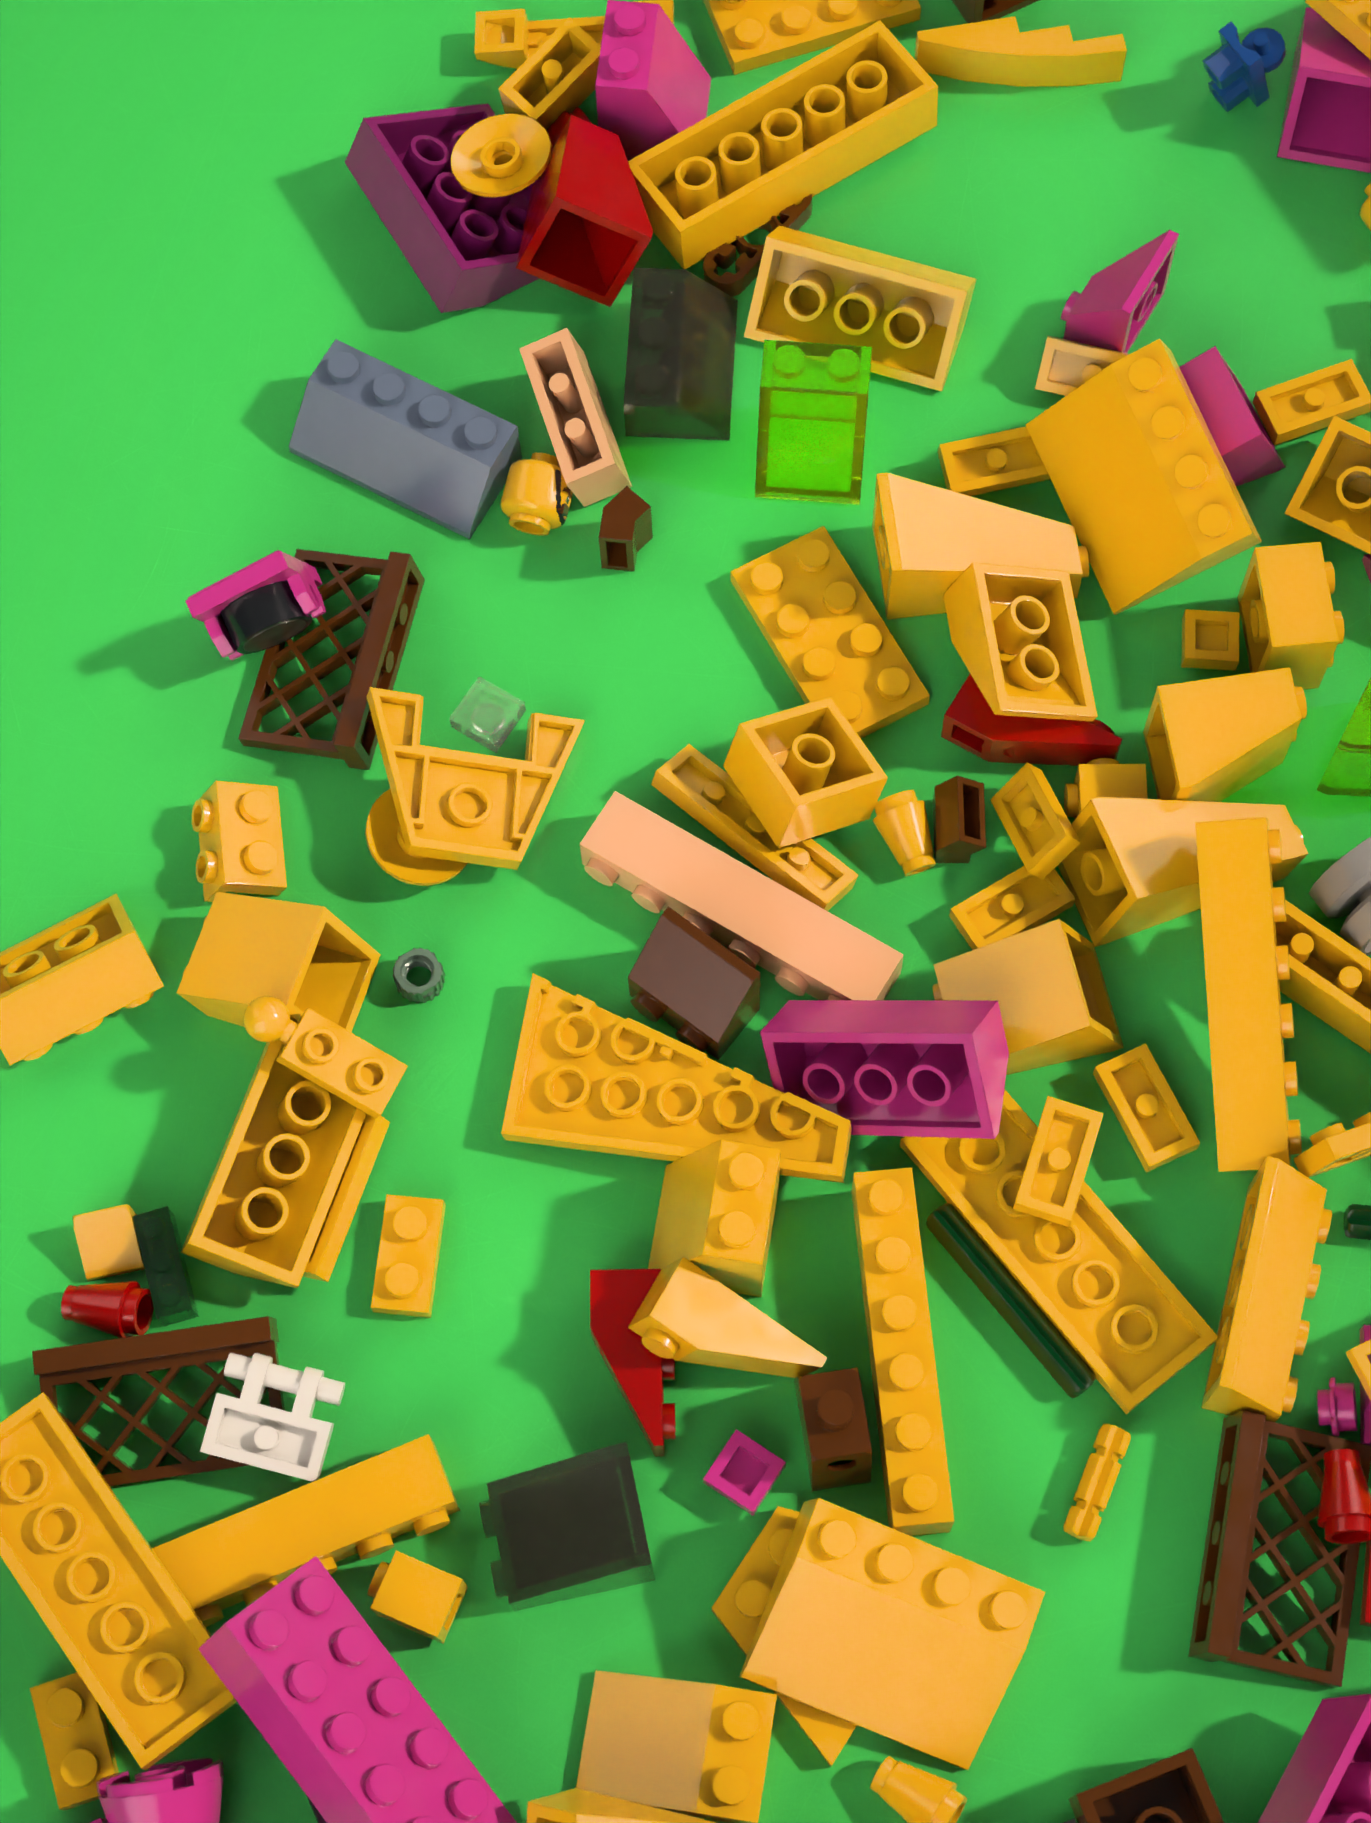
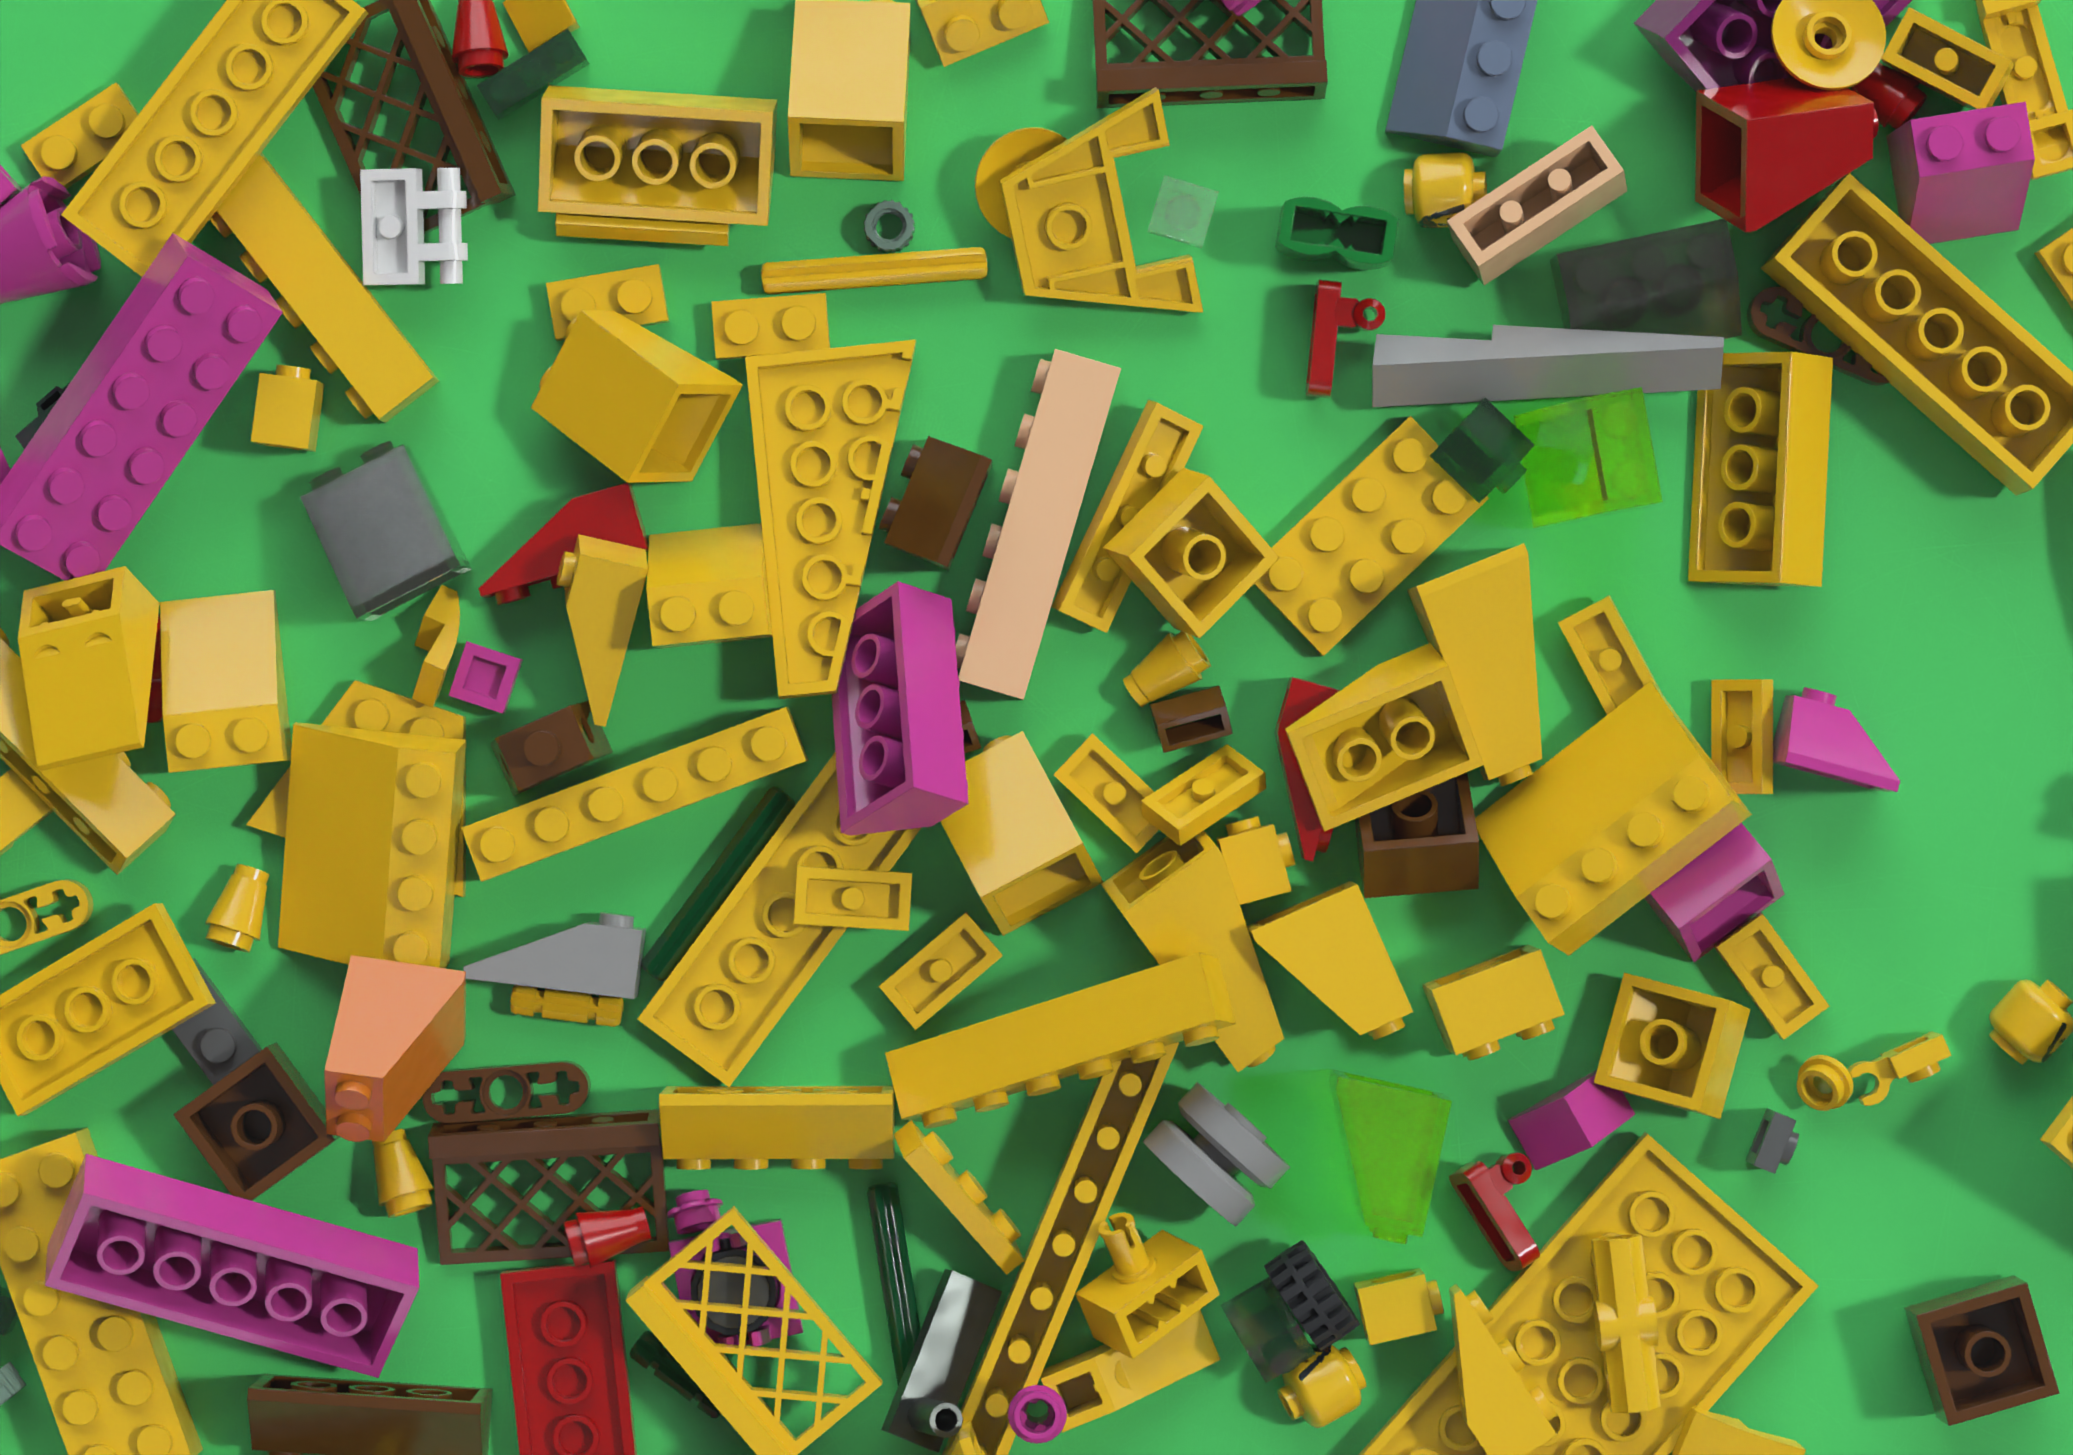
camera: 75 degrees right, 20 degrees up
(327, 1054) = (761, 169): yellow plate -> none
(455, 1000) = (874, 270): none -> yellow axle
(477, 1109) = (770, 325): none -> yellow plate
(507, 1245) = (634, 398): none -> yellow slope
(548, 584) = (1353, 236): none -> green brick
(624, 530) = (1422, 291): reddish brown piece -> none
(636, 622) = (1328, 314): none -> red piece
(695, 1505) = (438, 637): none -> yellow slope
(715, 454) = (1540, 365): none -> light grey slope
(781, 514) = (1484, 452): none -> clear green brick
(1052, 1456) = (582, 959): none -> light grey slope
(1098, 1664) = (390, 1043): none -> orange slope
(1127, 648) = (1420, 843): none -> reddish brown slope
(1152, 1611) = (550, 1101): none -> reddish brown beam
(1210, 639) = (1462, 927): yellow plate -> none
(1238, 1702) = (400, 1176): none -> yellow cone

